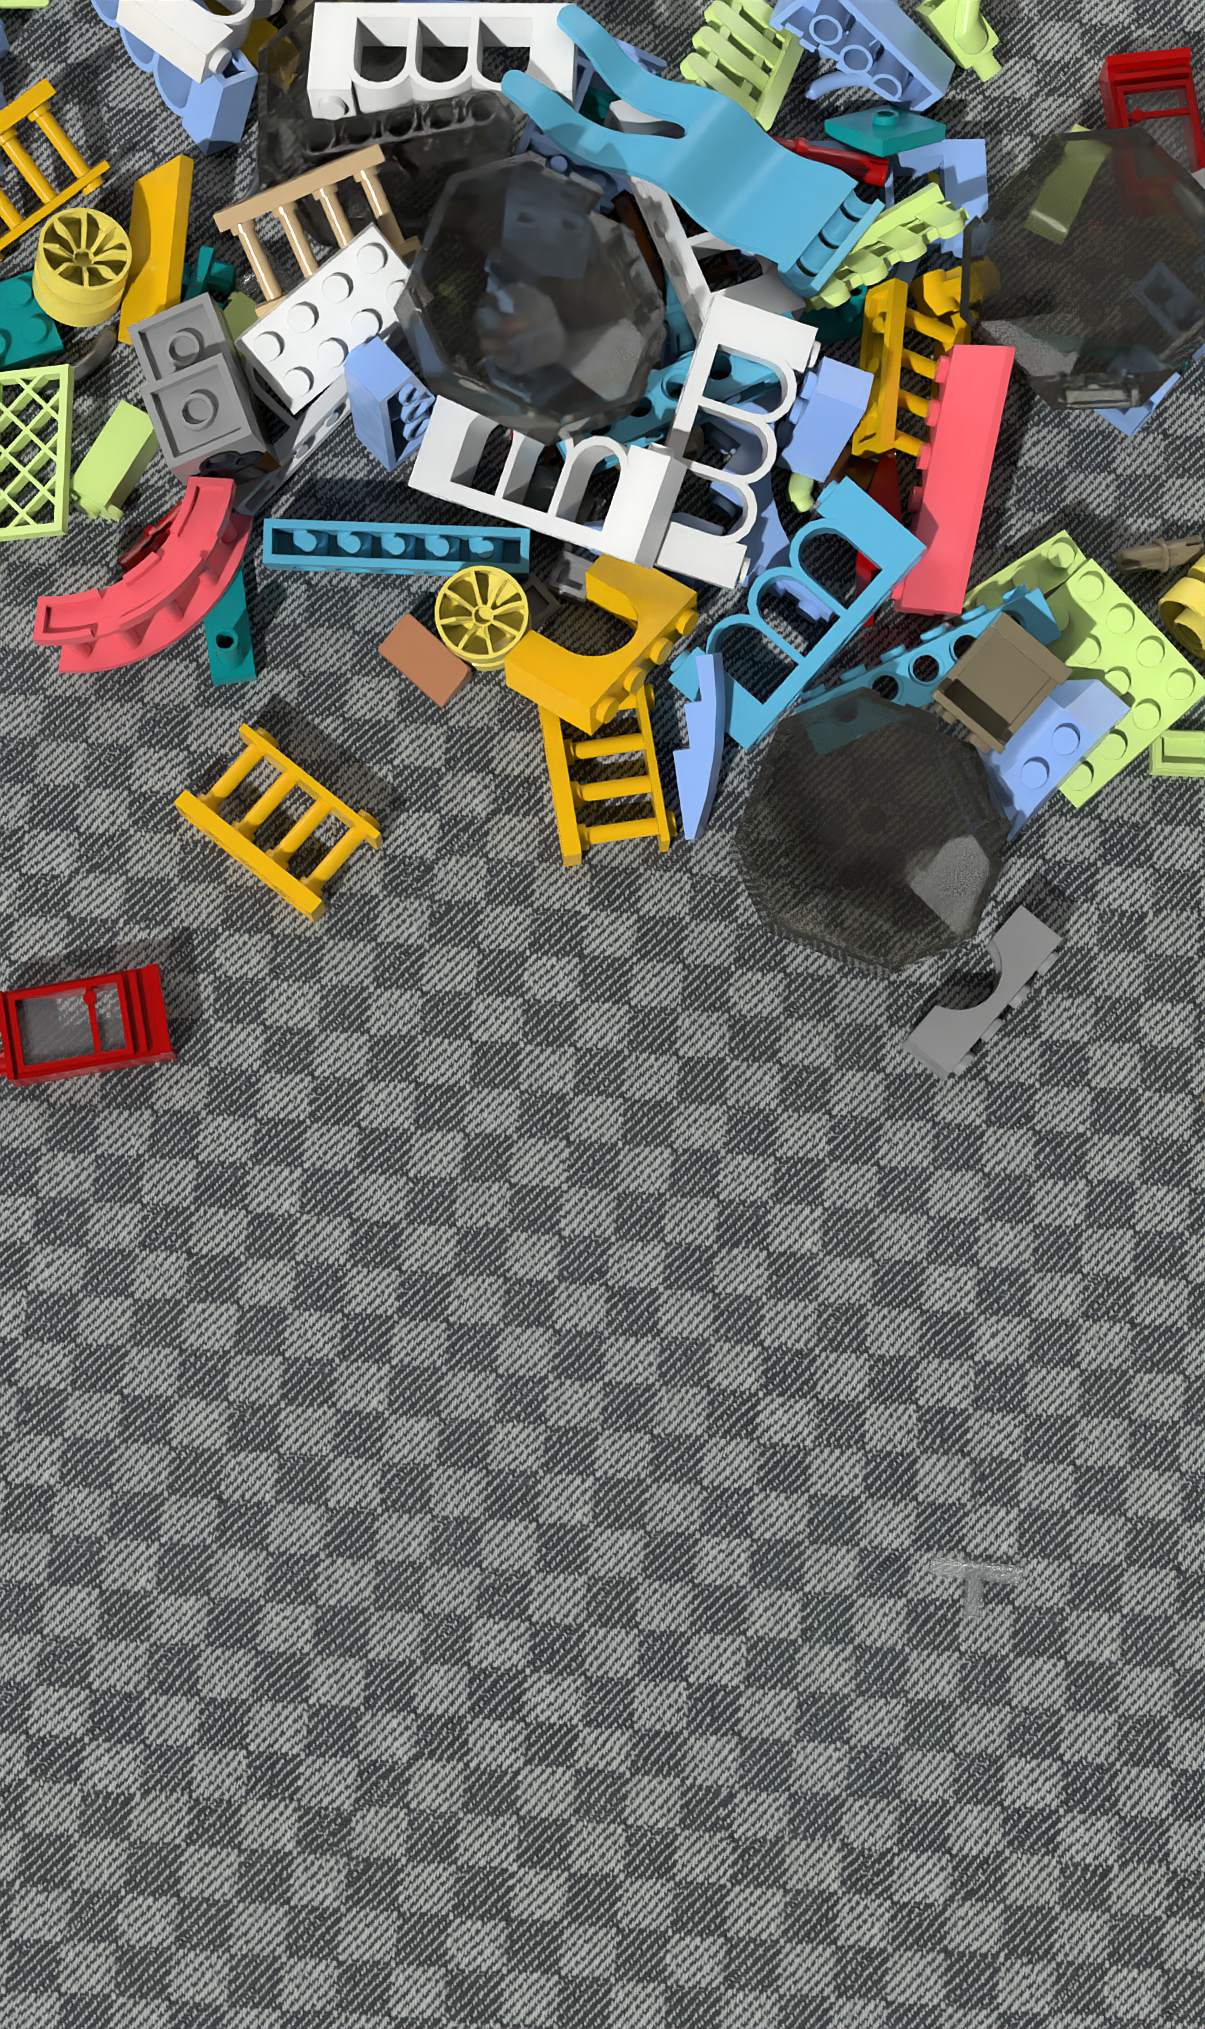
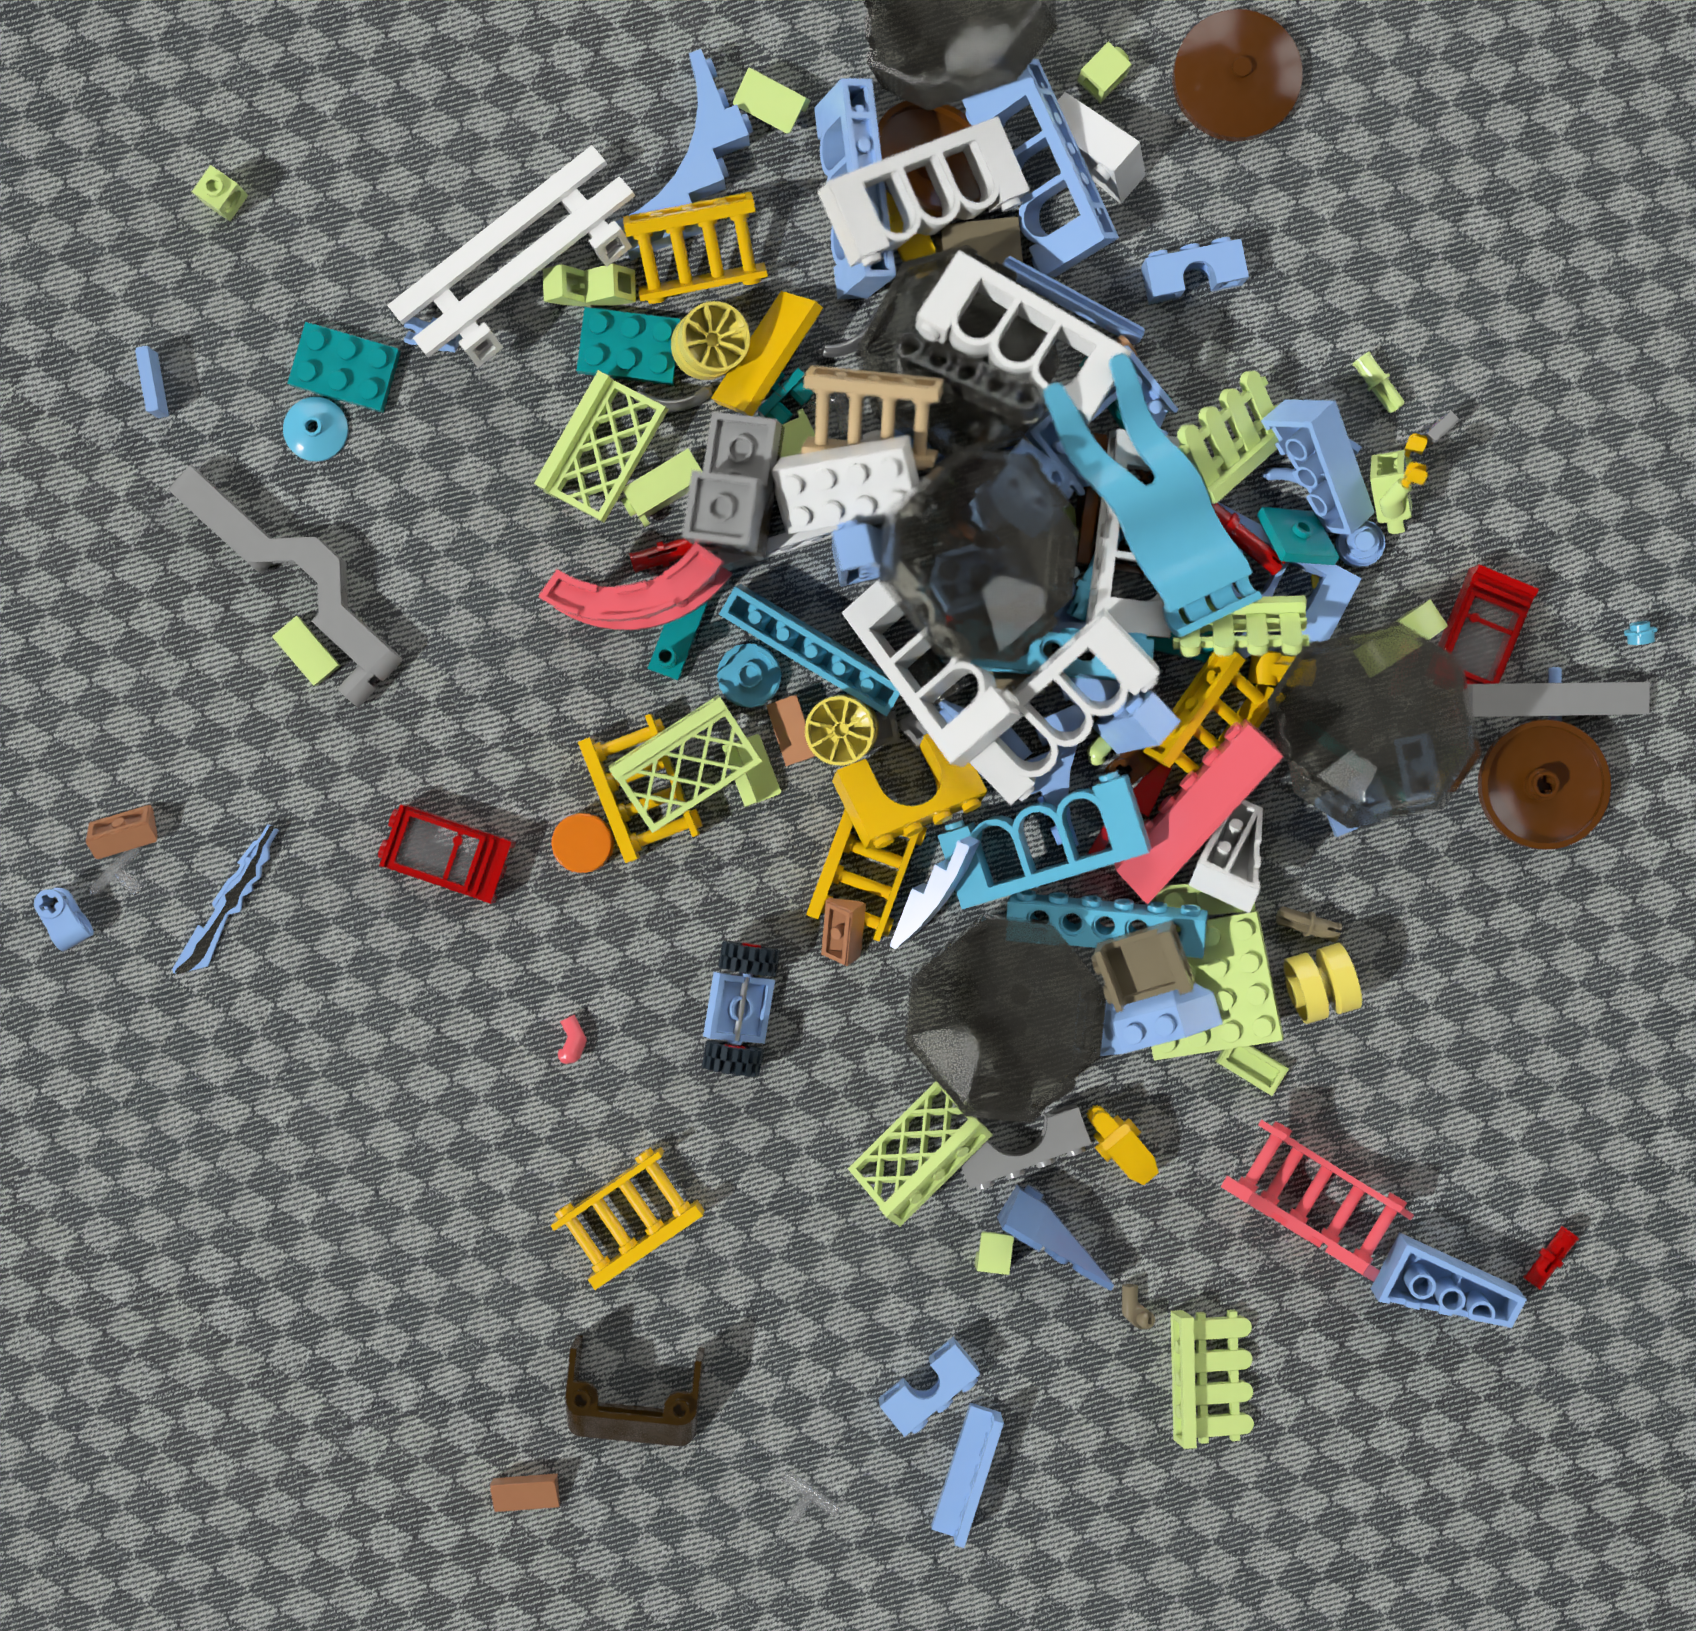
camera: 35 degrees right, 10 degrees up
(245, 924) = (582, 843): none -> orange head
(283, 734) = (669, 739): none -> yellowish green fence
(338, 627) = (749, 675): none -> medium azure tile
(367, 1170) = (575, 1041): none -> coral arm
(402, 733) = (758, 782): none -> yellowish green panel
(546, 1011) = (739, 1008): none -> plate
(576, 1384) = (630, 1249): none -> yellow fence
(618, 854) = (843, 930): none -> nougat slope
(618, 1776) = (525, 1492): none -> nougat slope
(659, 1624) = (593, 1419): none -> dark brown windscreen
(891, 1068) = (930, 1173): none -> yellowish green fence
(963, 109) = (1361, 547): none -> light blue plate
(1025, 1136) = (994, 1253): none -> yellowish green panel
(1029, 514) = (1232, 859): none -> white wedge
(1060, 1075) = (1037, 1225): none -> medium blue wedge
(1062, 1314) = (912, 1407): none -> light blue arch
(1100, 925) = (1120, 1141): none -> yellow hinge
(1153, 1431) = (968, 1473): none -> light blue fence

